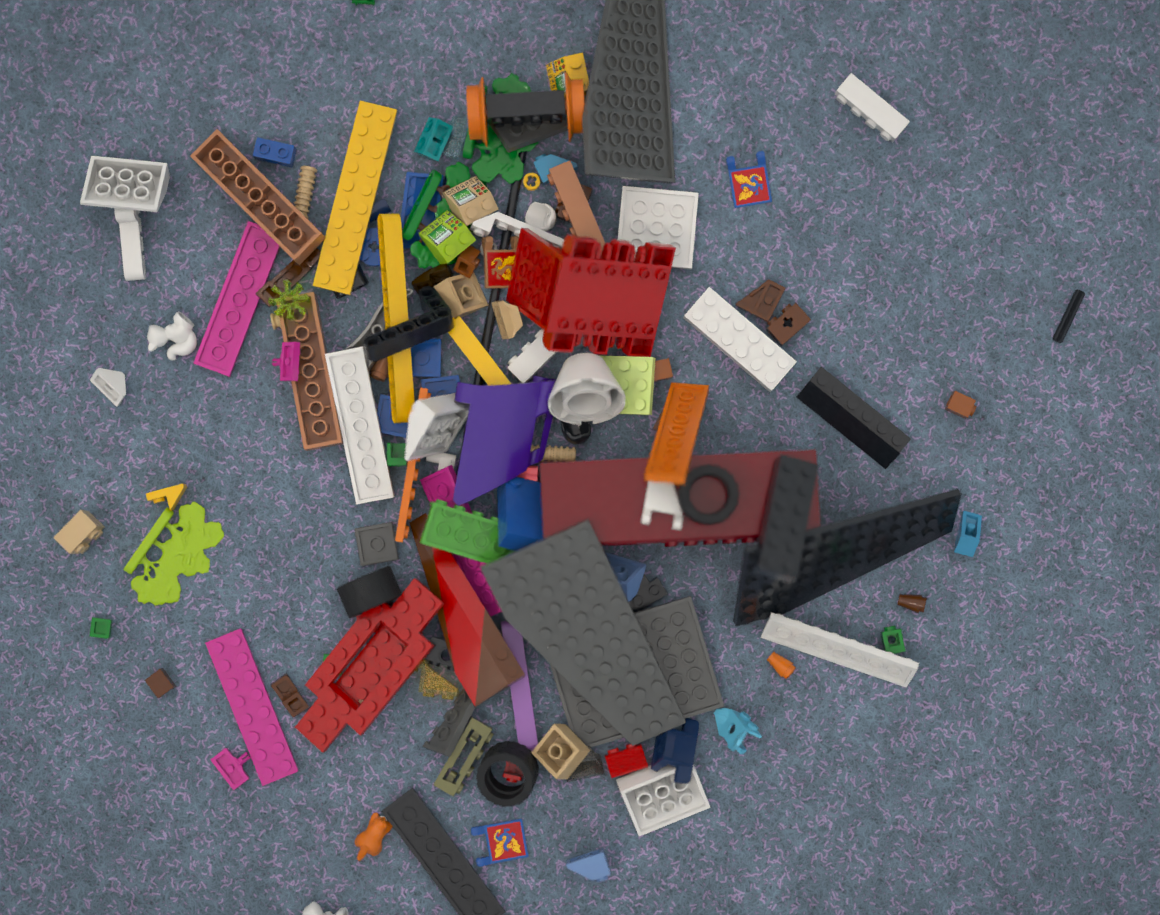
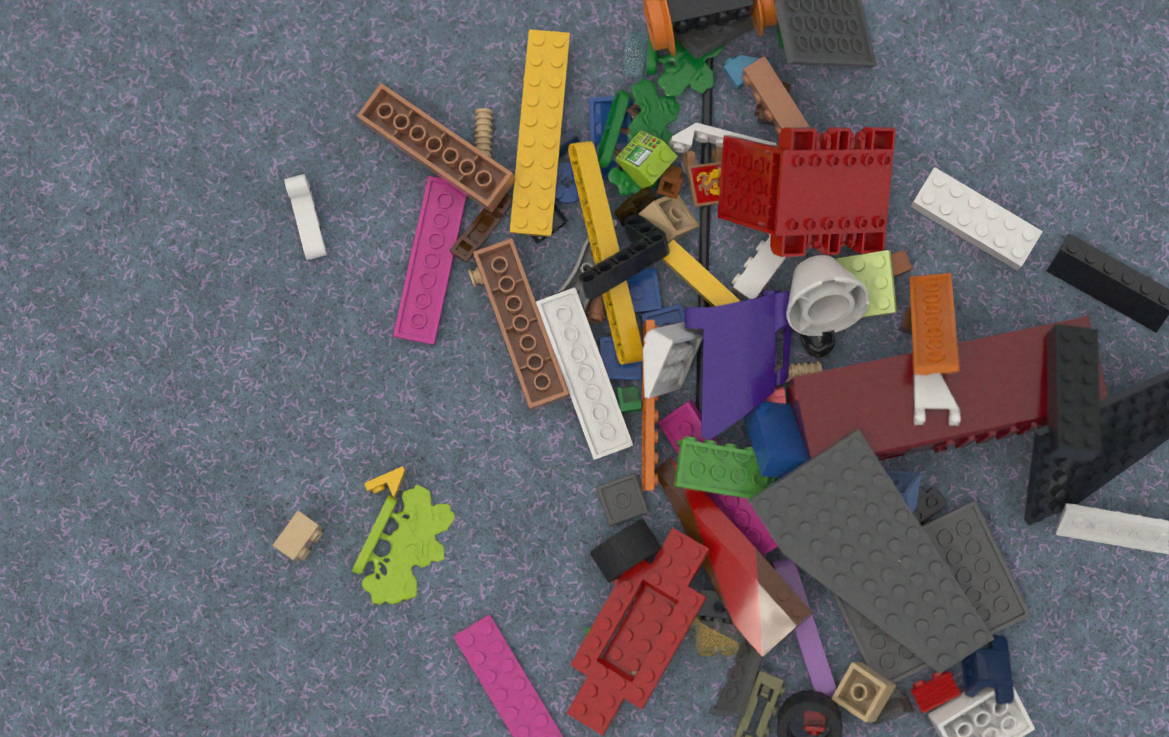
camera: 10 degrees left, 5 degrees down
(100, 628) = (337, 638): green plate -> none
(111, 384) = (307, 373): white slope -> none
(125, 184) = (291, 155): white slope -> none
(160, 683) = (411, 688): reddish brown panel -> none
(178, 332) = (372, 305): white animal -> none
(274, 152) = (445, 99): blue brick -> none
(282, 308) = (480, 252): clear neon green gear -> none
(288, 361) = (498, 315): dark pink plate -> none
(289, 695) = (554, 679): reddish brown slope -> none
(433, 139) = (612, 59): teal brick -> none
(442, 459) = (678, 396): white piece -> none
(470, 200) = (663, 116): tan slope -> none
(507, 318) = (724, 235): tan slope -> none
(537, 182) = (717, 87): yellow bush -> none
(541, 216) = (741, 121): white hair -> none
(660, 218) = (868, 102): white plate -> none
(726, 719) = (1035, 629): medium azure piece -> none
(732, 494) = (1005, 366): black tyre -> none
(749, 184) = (955, 55): flag -> none
(762, 300) = (992, 174): reddish brown wing -> none
(781, 665) = (1085, 561): orange cone -> none
(783, 334) = (1029, 183): reddish brown brick -> none

